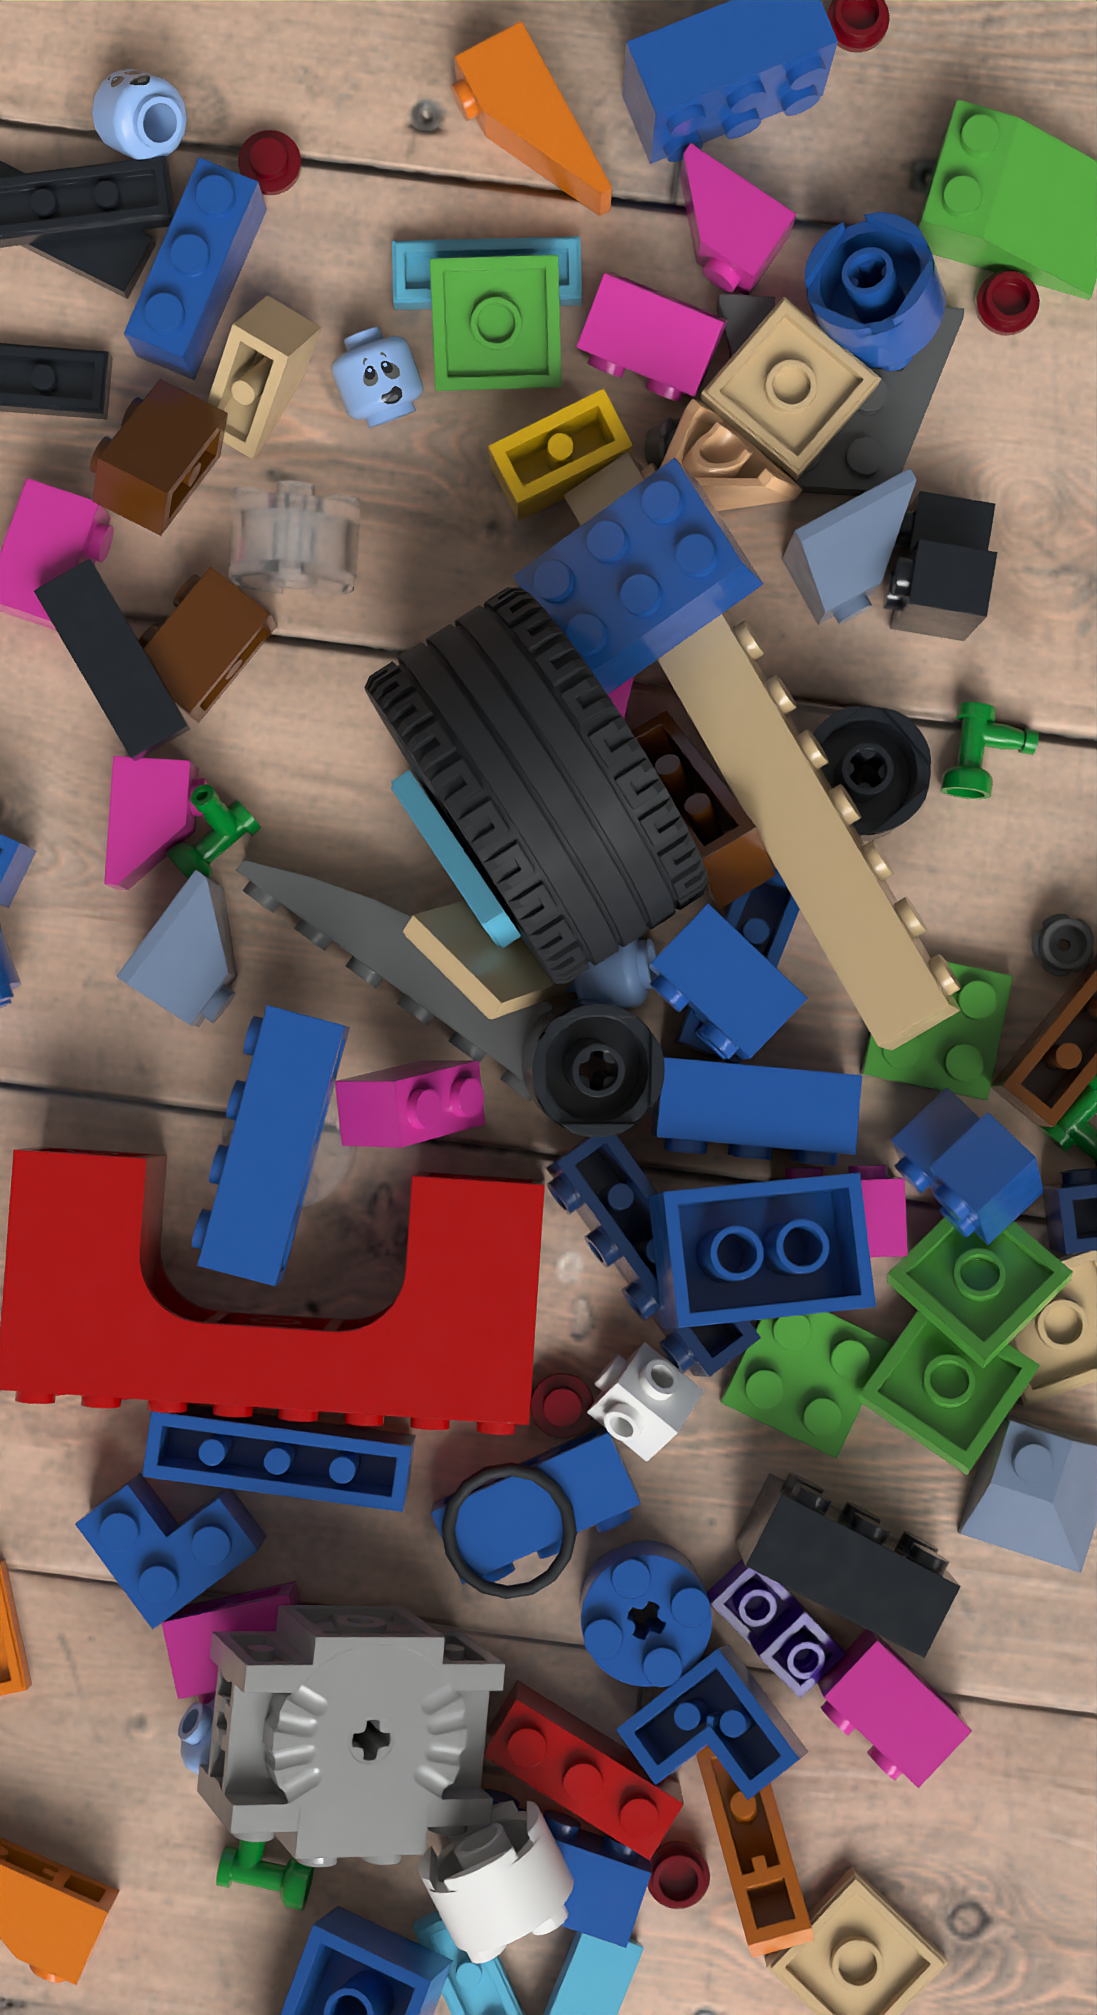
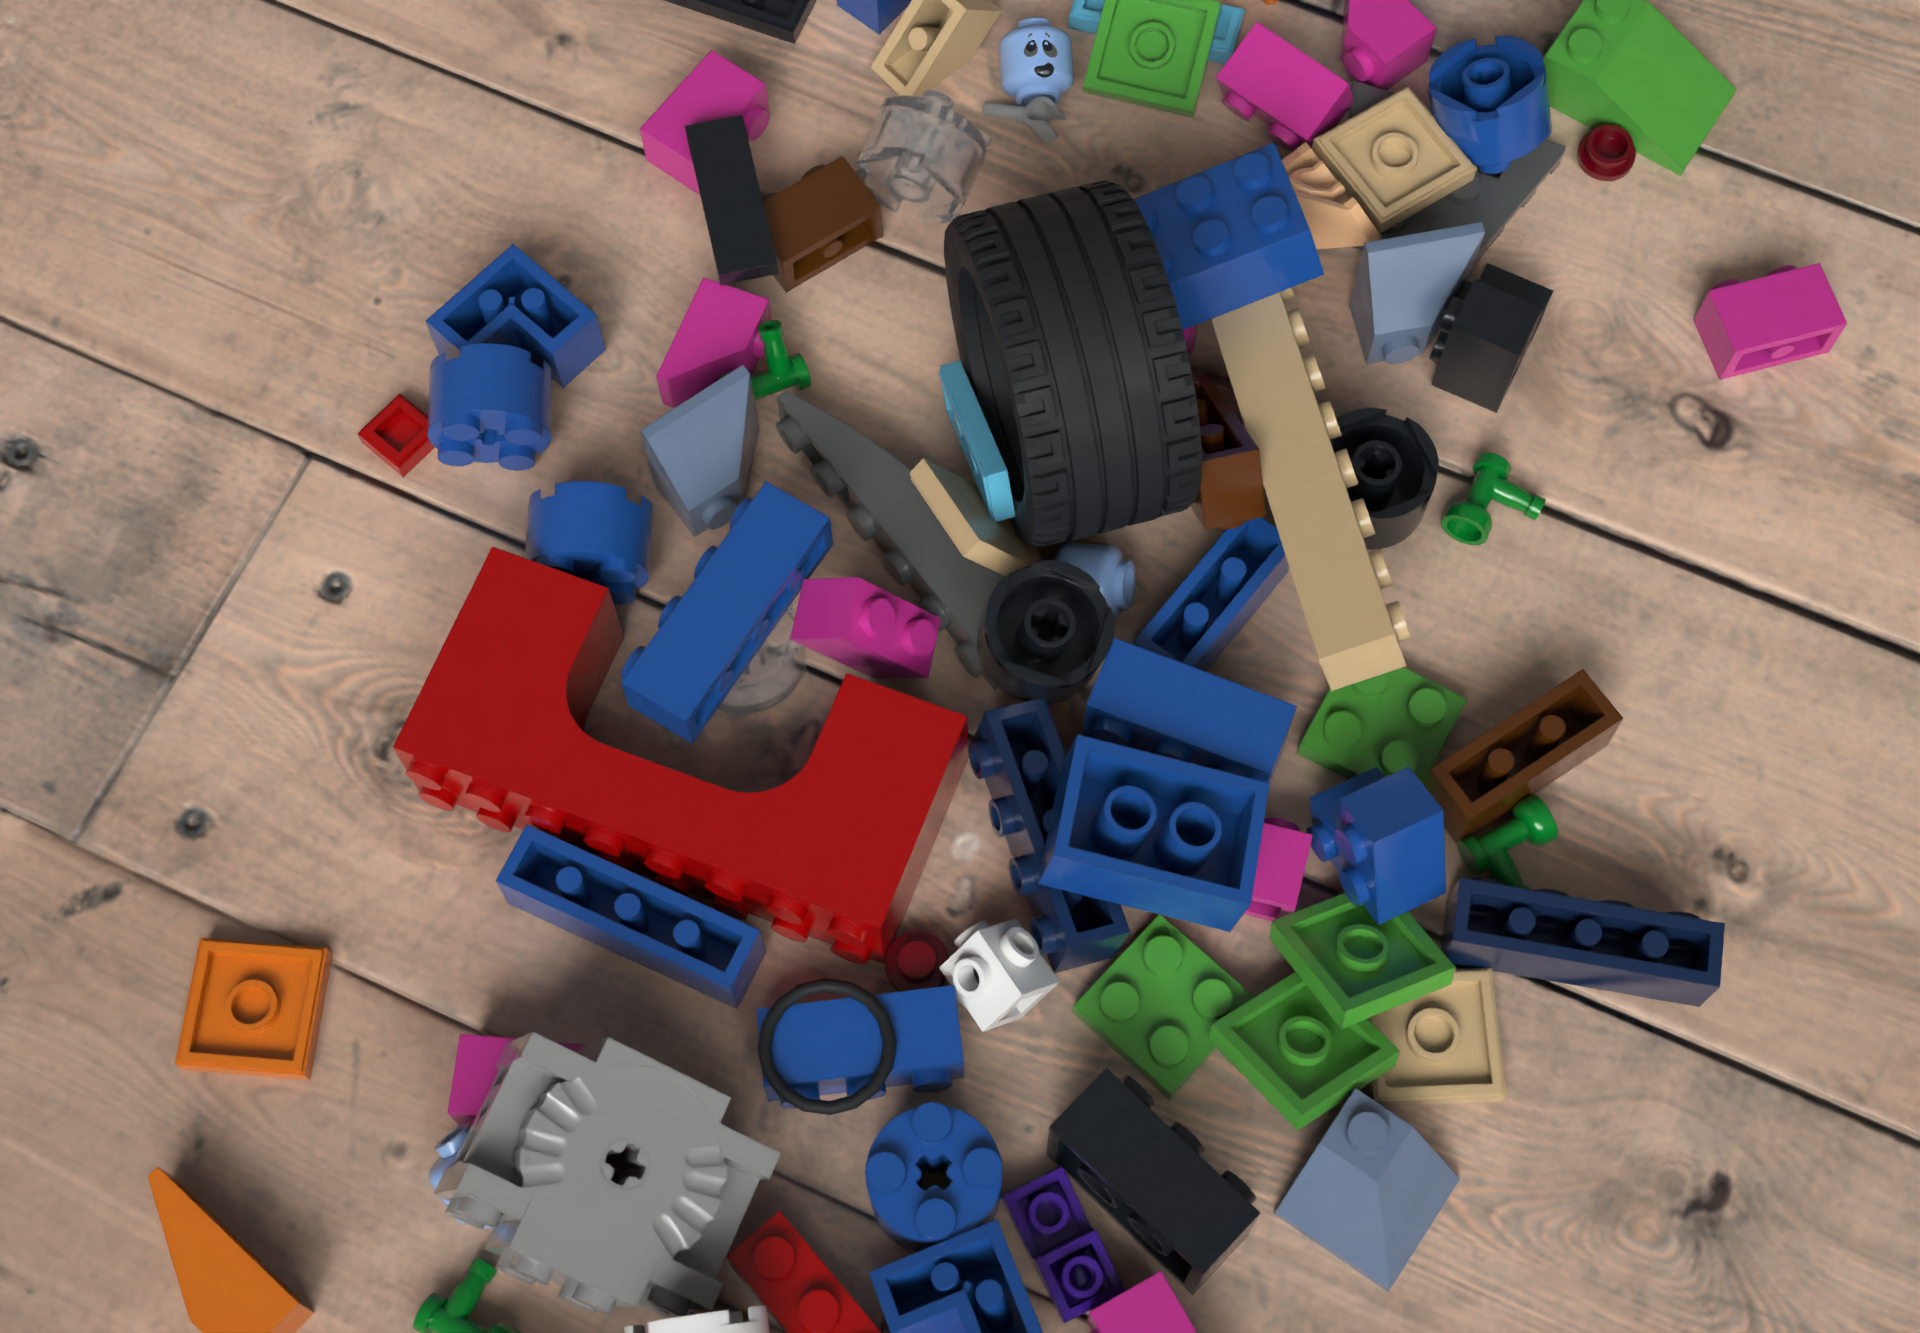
camera: 20 degrees right, 20 degrees down
(100, 1089) = (592, 535): none -> blue brick
(157, 456) = (829, 65): reddish brown brick -> none
(167, 1561) = (493, 986): blue brick -> none
(390, 440) = (1034, 114): none -> light grey hand
(557, 453) = (1171, 147): yellow brick -> none
(726, 984) = (1198, 576): blue brick -> none
(1080, 947) = (1518, 672): dark grey plate -> none

